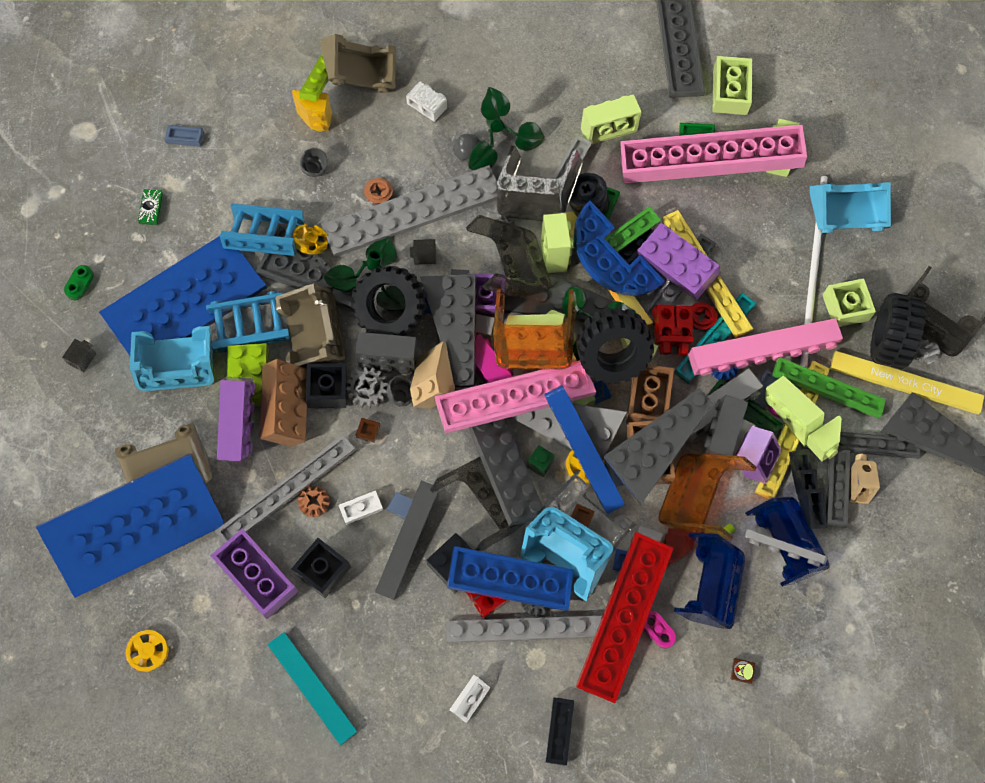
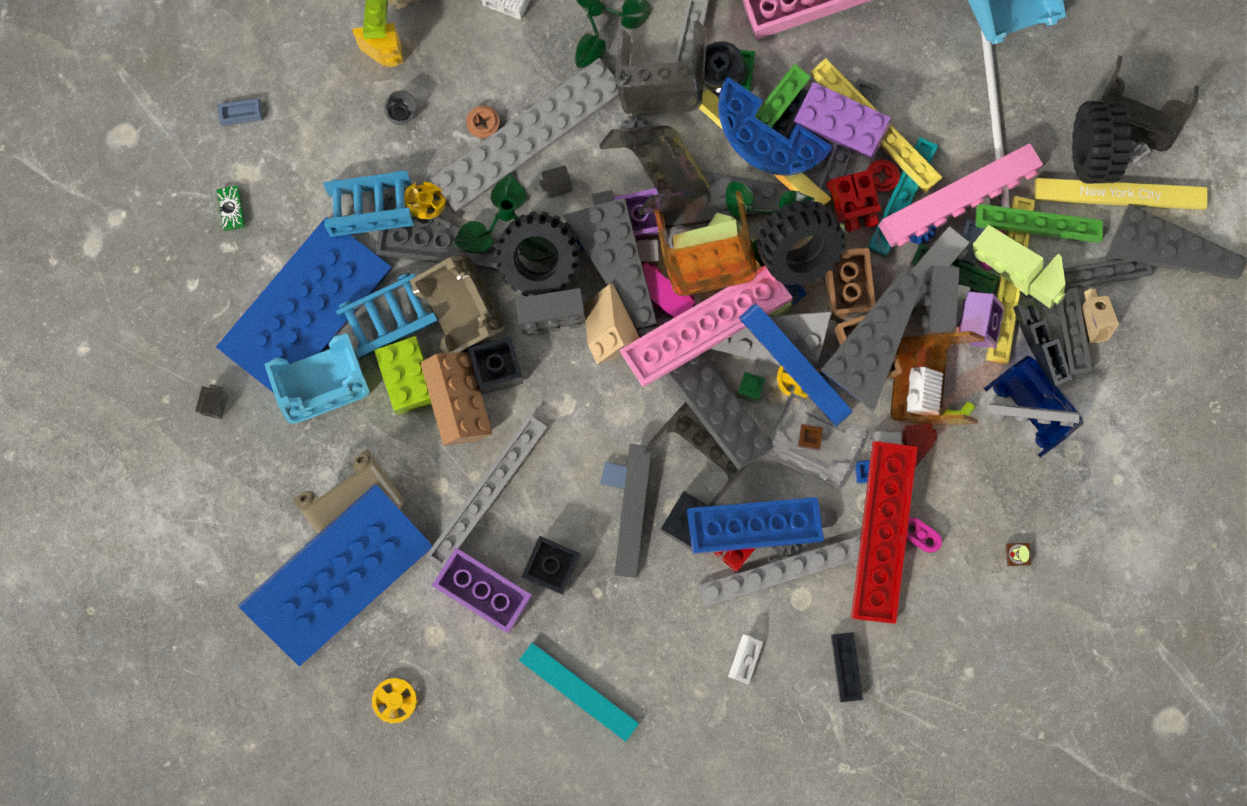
camera: 10 degrees left, 10 degrees up
(79, 281) = (180, 317): green plate -> none
(235, 418) = (411, 431): medium lavender brick -> none
(313, 510) = (522, 505): nougat gear -> none
(360, 507) = (572, 489): white plate -> none
(367, 430) = (554, 402): reddish brown plate -> none
(373, 381) = (533, 361): light grey gear -> none
(399, 391) = (576, 350): dark grey hair -> none
(464, 145) = (566, 41): dark grey hair -> none
(556, 242) = (702, 135): yellowish green brick -> none
(568, 546) = (807, 474): medium azure windscreen -> none
(692, 502) = (924, 391): none -> white brick
(718, 583) = (971, 470): clear blue windscreen -> none
(849, 302) = (1040, 119): yellowish green brick -> none

